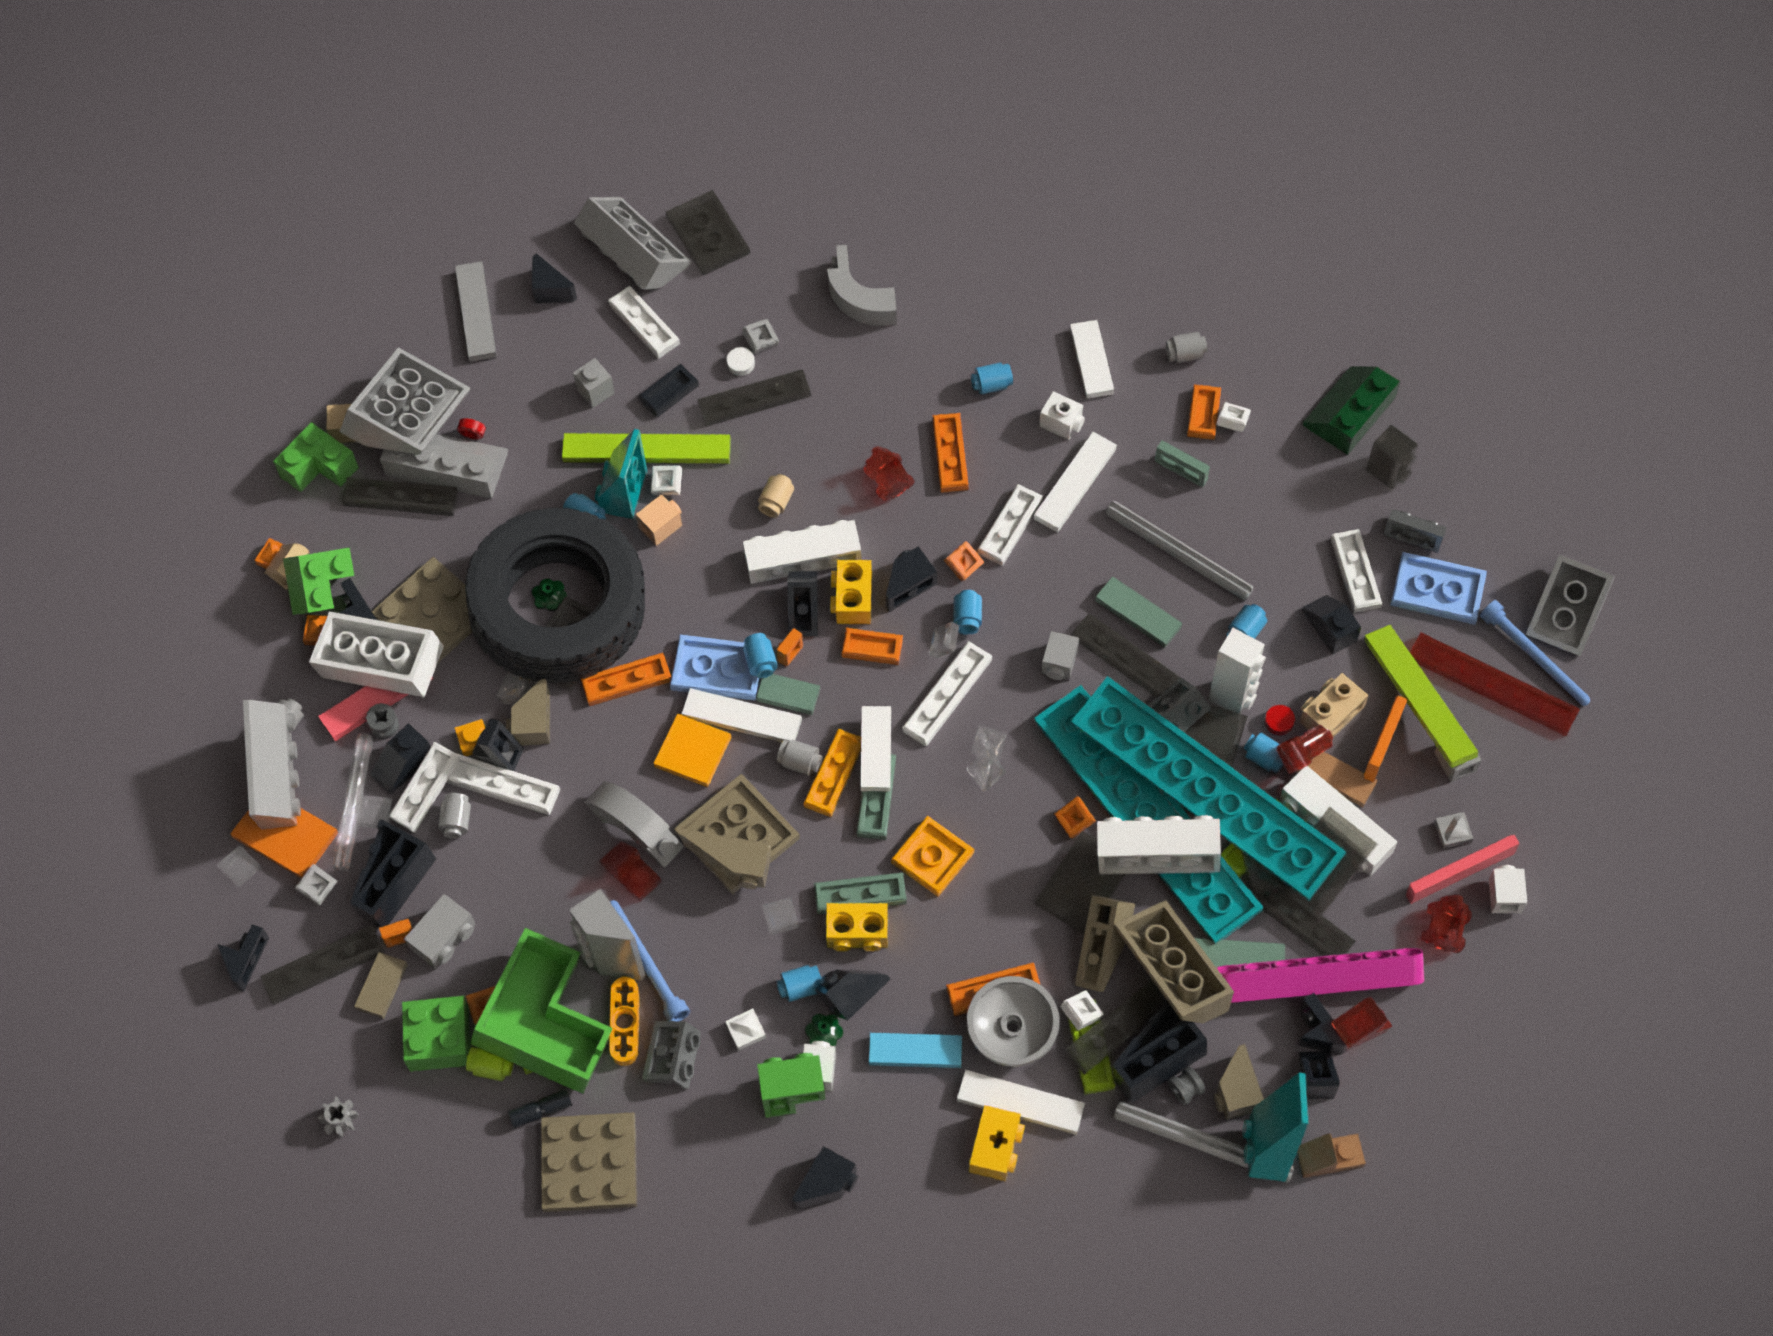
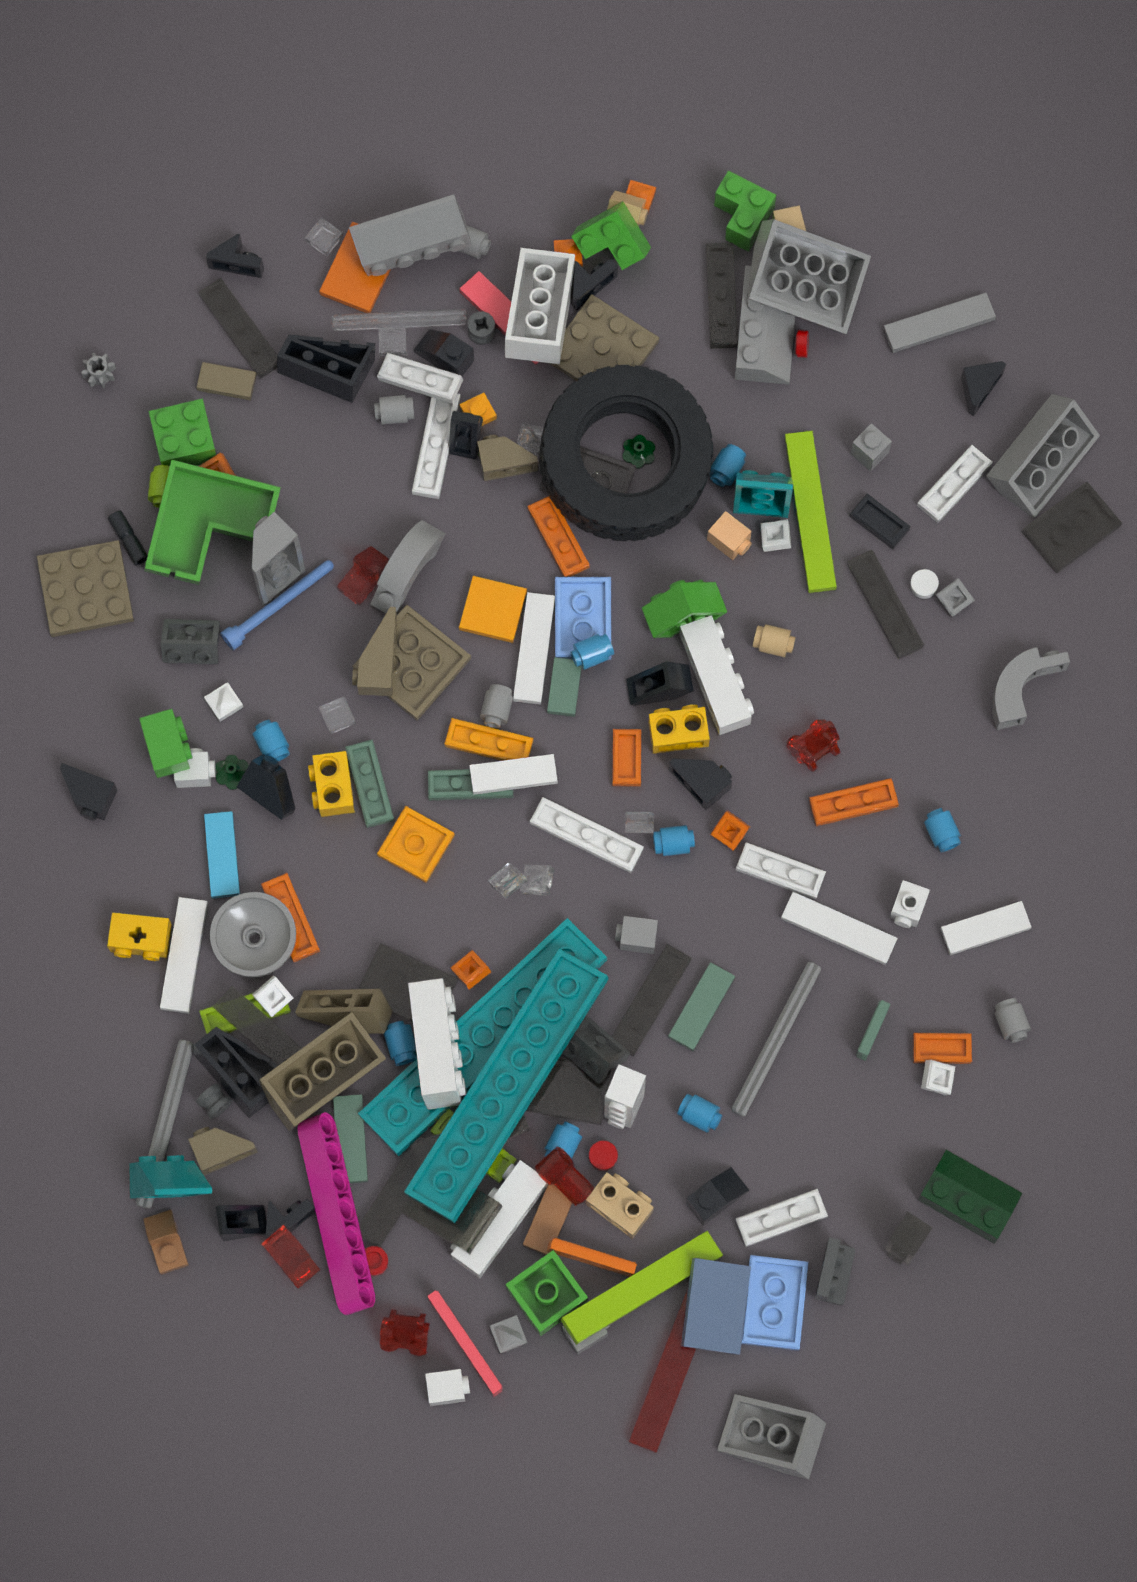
camera: 80 degrees right, 10 degrees up
(315, 884) = (312, 305): light grey tile -> none
(395, 932) = (275, 383): orange tile -> none
(440, 932) = (280, 420): light grey brick -> none
(616, 1000) = (199, 606): light orange beam -> none
(729, 562) = (682, 605): none -> bright green brick
(789, 647) = (609, 679): orange tile -> none
(1145, 891) = (400, 1043): none -> dark azure brick
(1368, 943) = (377, 1260): none -> red tile
(1419, 783) = (546, 1292): none -> bright green brick
(1441, 635) = (715, 1306): none -> sand blue tile
(1496, 616) = (749, 1360): medium blue piece -> none

